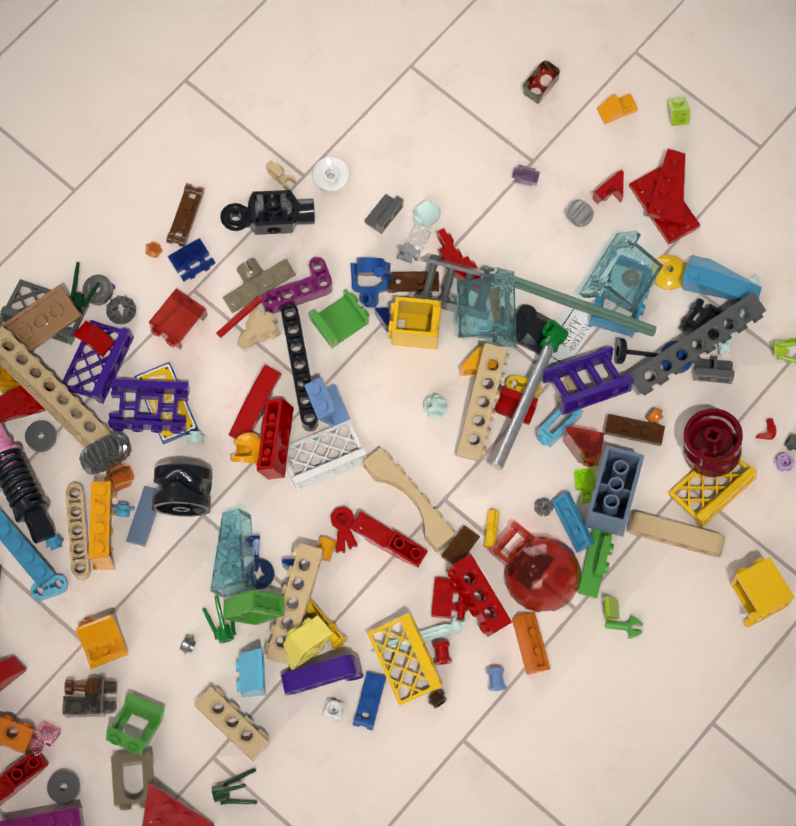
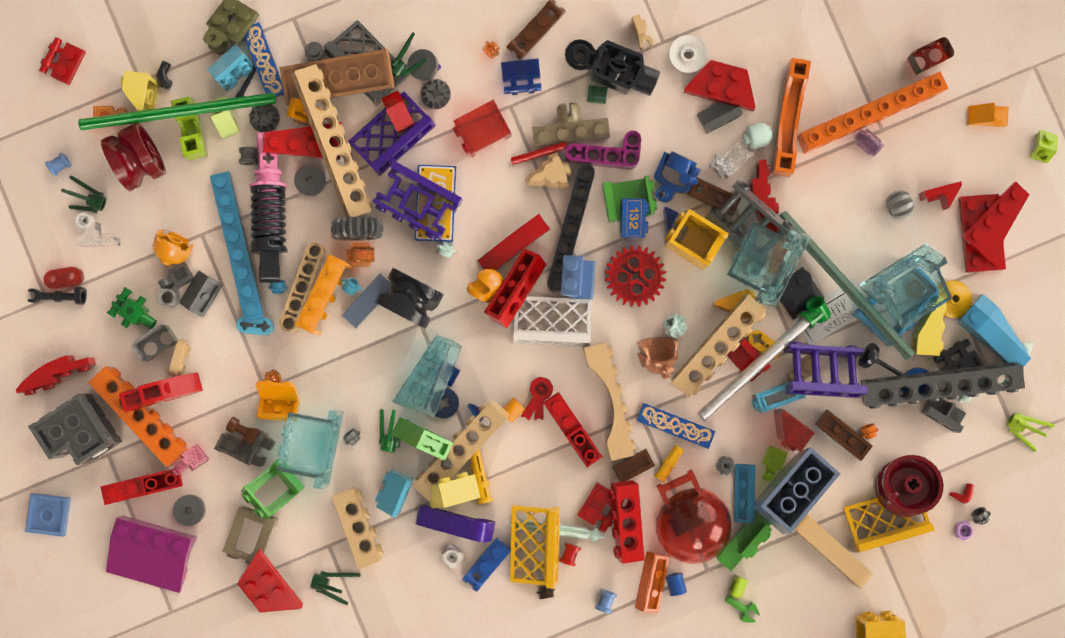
camera: 25 degrees right, 15 degrees up
(152, 665) = (310, 446): none -> clear light blue windscreen
(267, 243) = (597, 94): none -> clear green piece
(351, 331) = (633, 217): none -> blue brick
(374, 186) = (723, 84): none -> red wing
(374, 396) = (645, 262): none -> red gear
(434, 438) = (658, 354): none -> nougat helmet
(441, 170) = (786, 138): none -> orange arch
(481, 494) = (676, 426): none -> tile
(515, 150) = (872, 112): none -> orange brick
(553, 632) = (676, 584): none -> blue gear
(663, 312) = (928, 334): none -> light yellow slope

